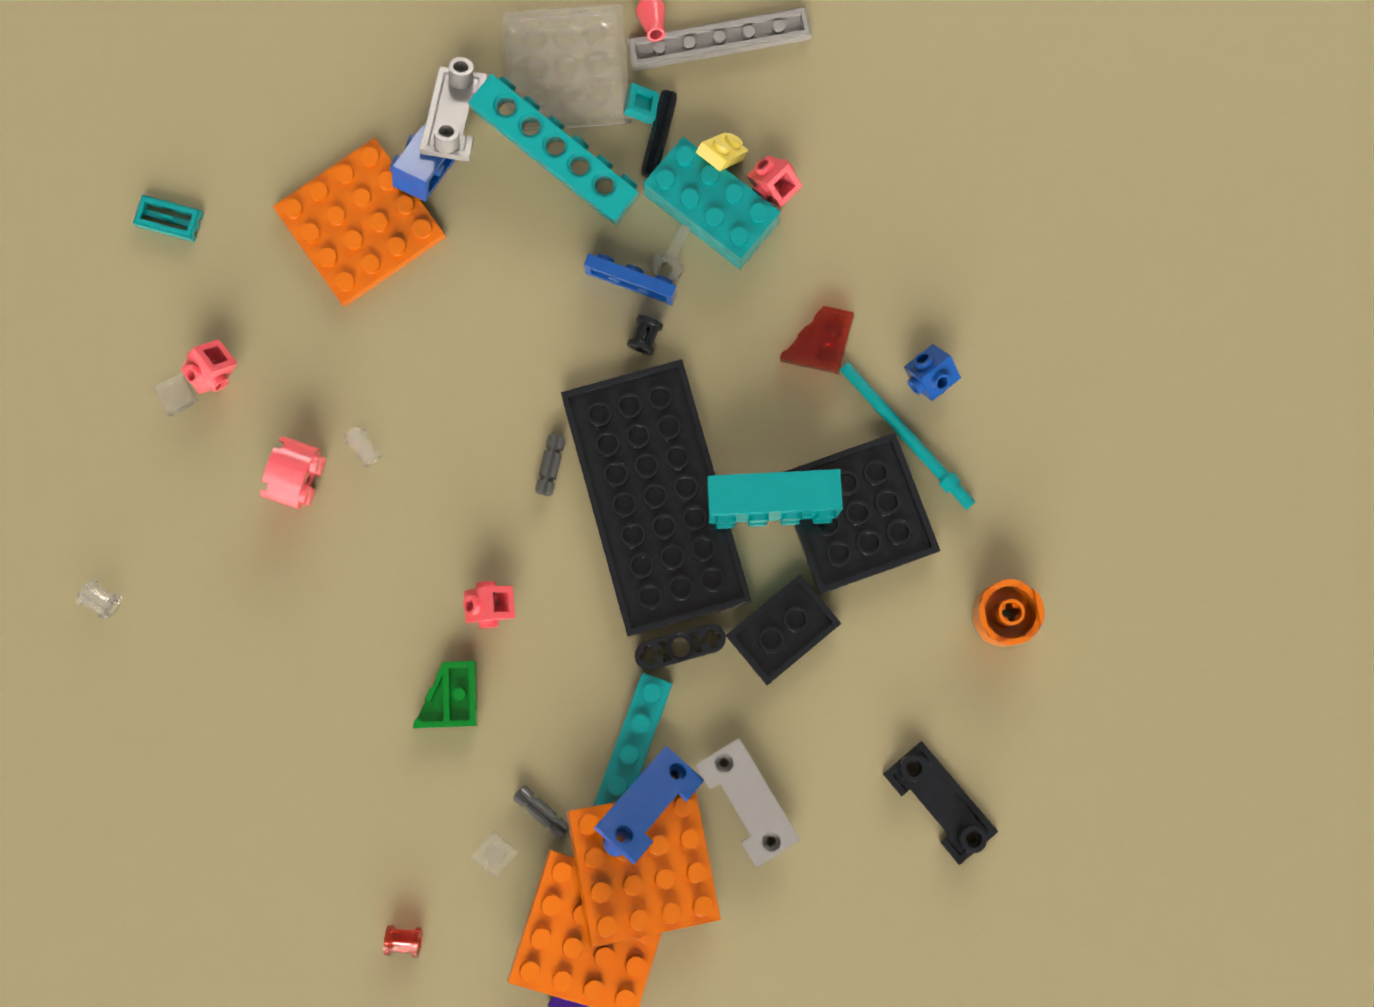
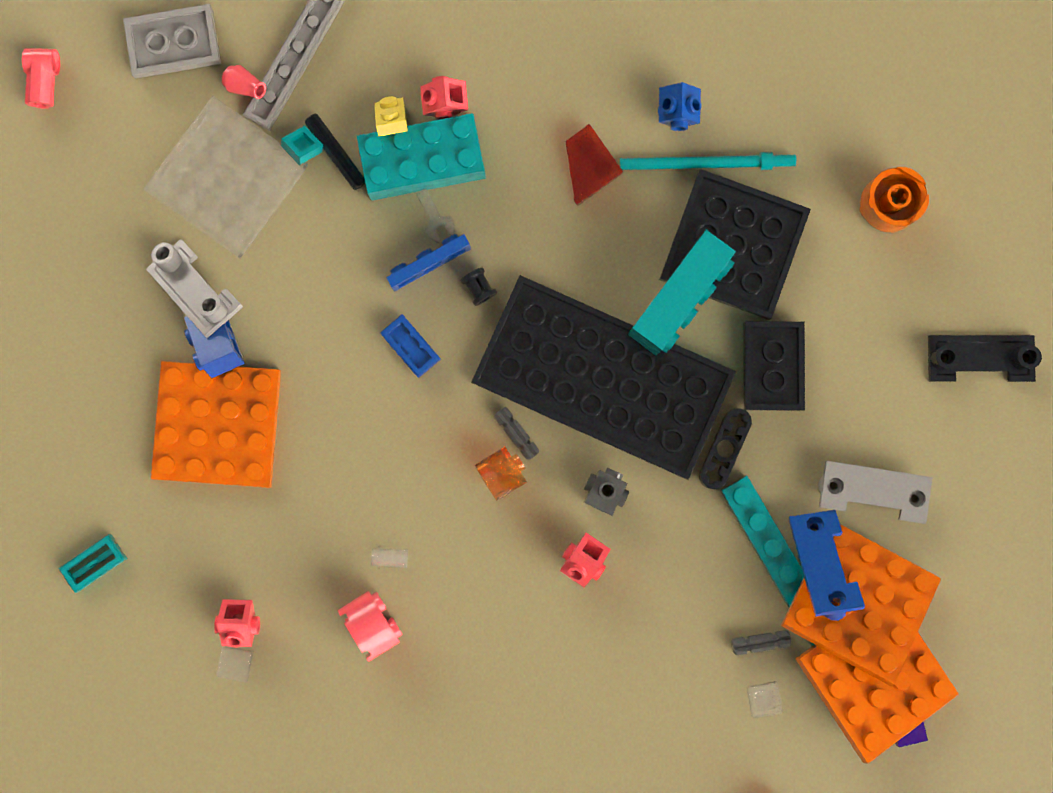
camera: 50 degrees left, 5 degrees up
(451, 698) = (628, 641): green wing -> none
(487, 105) = (208, 238): teal brick -> none
(505, 477) = (502, 472): none -> clear orange brick
(549, 571) = (595, 496): none -> dark grey brick
(550, 321) = (410, 346): none -> blue plate

